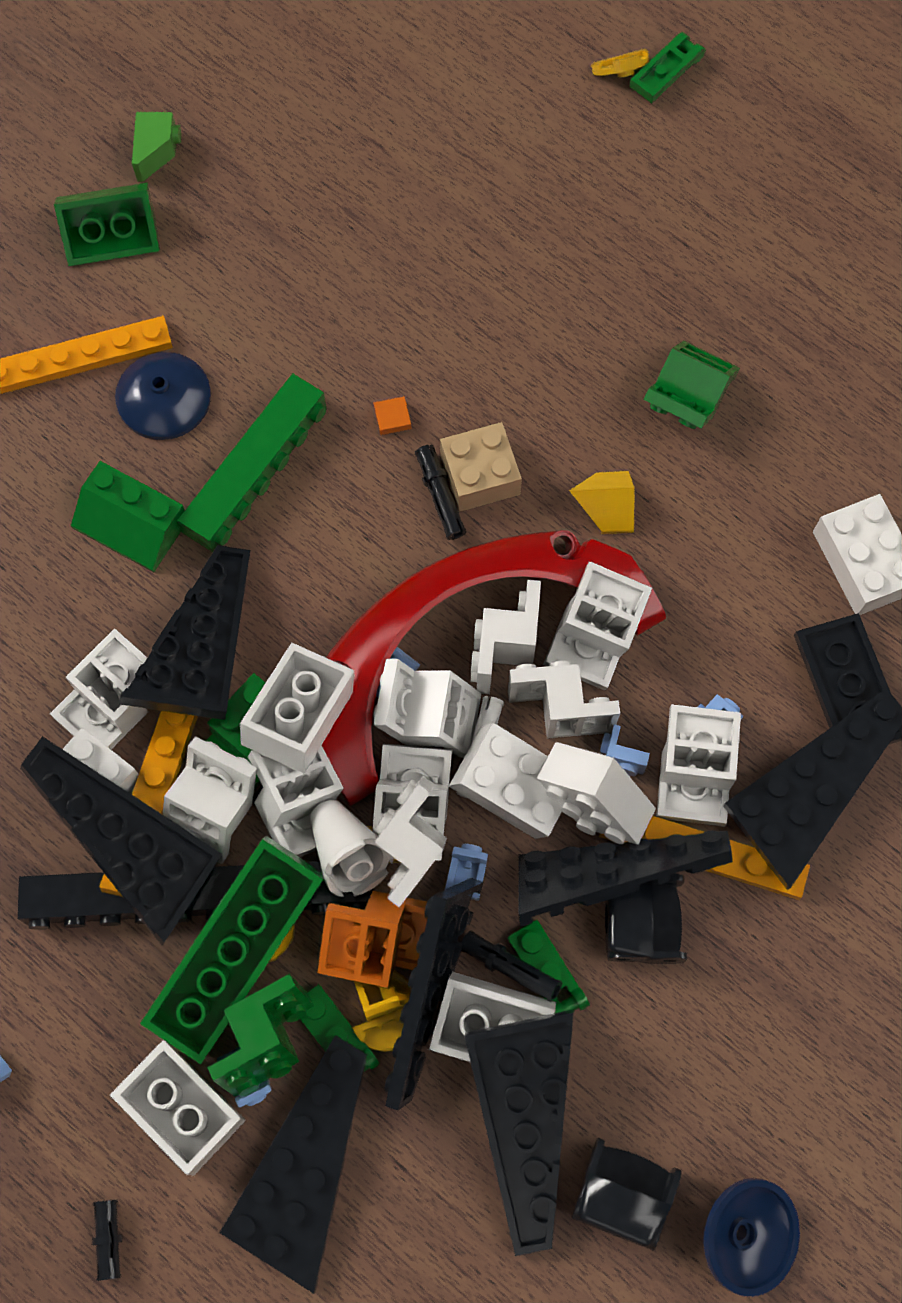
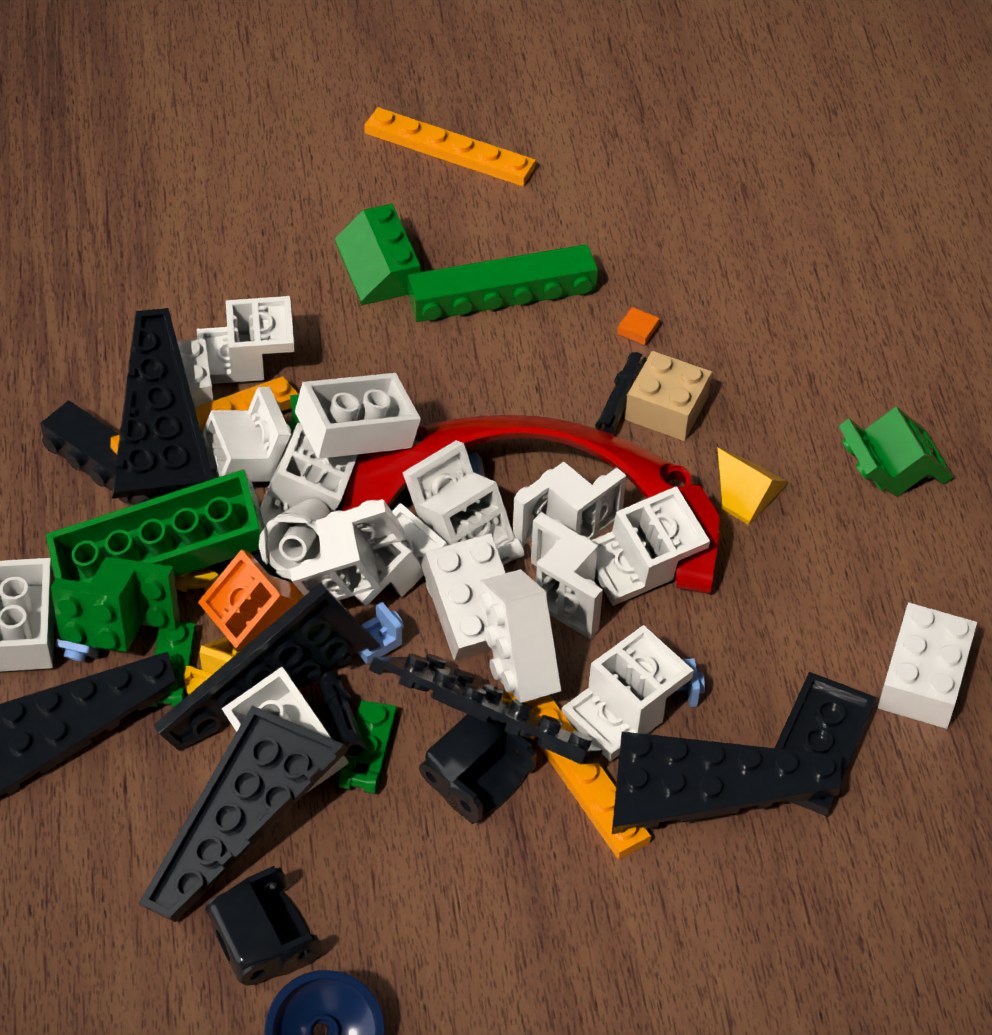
camera: 40 degrees right, 20 degrees down
(107, 224) = (554, 83): green slope -> none
(153, 142) = (639, 57): bright green slope -> none
(166, 410) = (484, 208): dark blue dish -> none
(197, 648) = (337, 346): black wing -> none
(630, 759) = (576, 649): light blue bracket -> none

